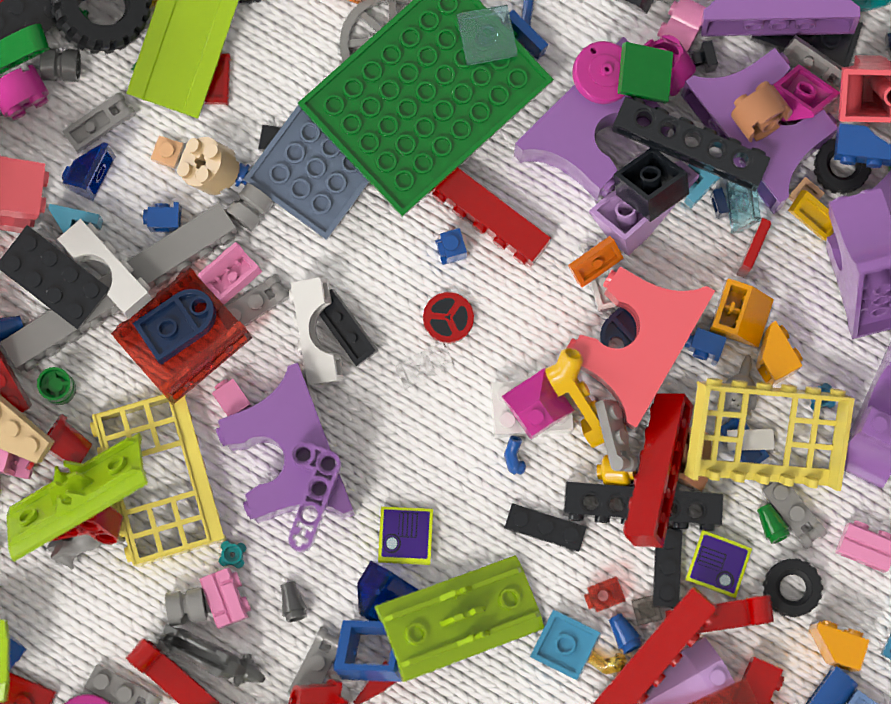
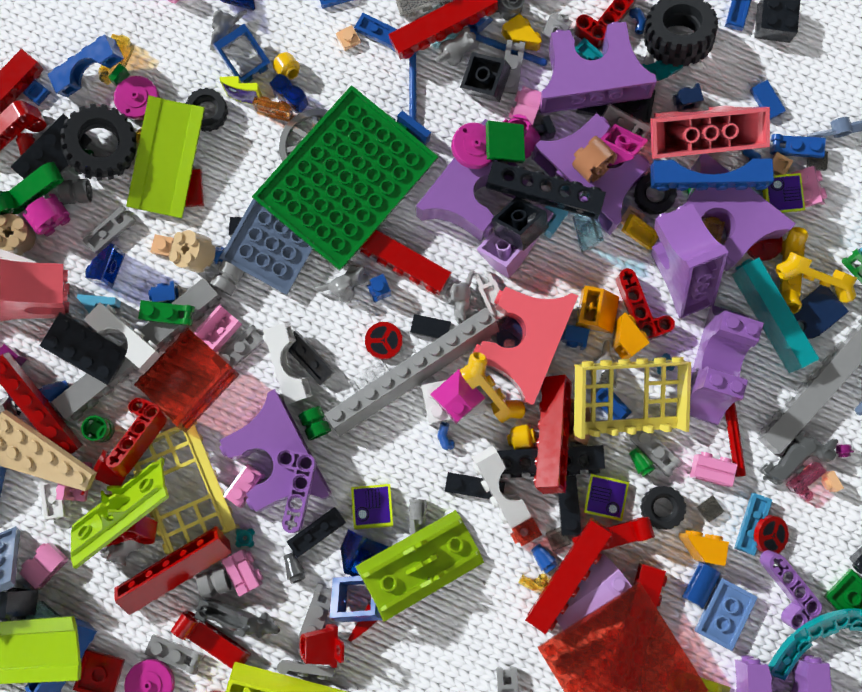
camera: 10 degrees left, 0 degrees up
(124, 388) = (138, 437): none -> red beam
(135, 582) = (172, 570): none -> red brick
(164, 244) = (165, 313): none -> green plate
(176, 324) = (181, 371): dark blue tile -> none
(230, 397) = (229, 420): bright pink brick -> none
(240, 482) = (243, 484): none -> bright pink brick
(328, 559) = (316, 532): none -> black plate
(342, 412) = (314, 422): none -> green wheel
(404, 236) = (344, 285): none -> light grey animal
(464, 553) = (417, 514): none -> light grey hinge
(482, 364) = (412, 372): none -> light grey brick
(487, 35) = (385, 129): clear light blue plate -> none
(513, 308) = (429, 326): none -> black tile
(556, 270) = (460, 296): none -> light grey animal
(565, 645) = (501, 573): dark azure plate -> none
(569, 502) = (490, 467): none -> white arch
(595, 261) = (486, 285): orange plate -> none
(615, 436) = (518, 413): light grey plate -> none
(719, 203) = (570, 232): dark blue tile -> none
(753, 439) = (620, 401): white sticker -> none
(754, 248) = (600, 261): red tile -> none
(801, 313) = (641, 304): none -> red beam
(856, 598) = (710, 508): none -> clear smoke tile

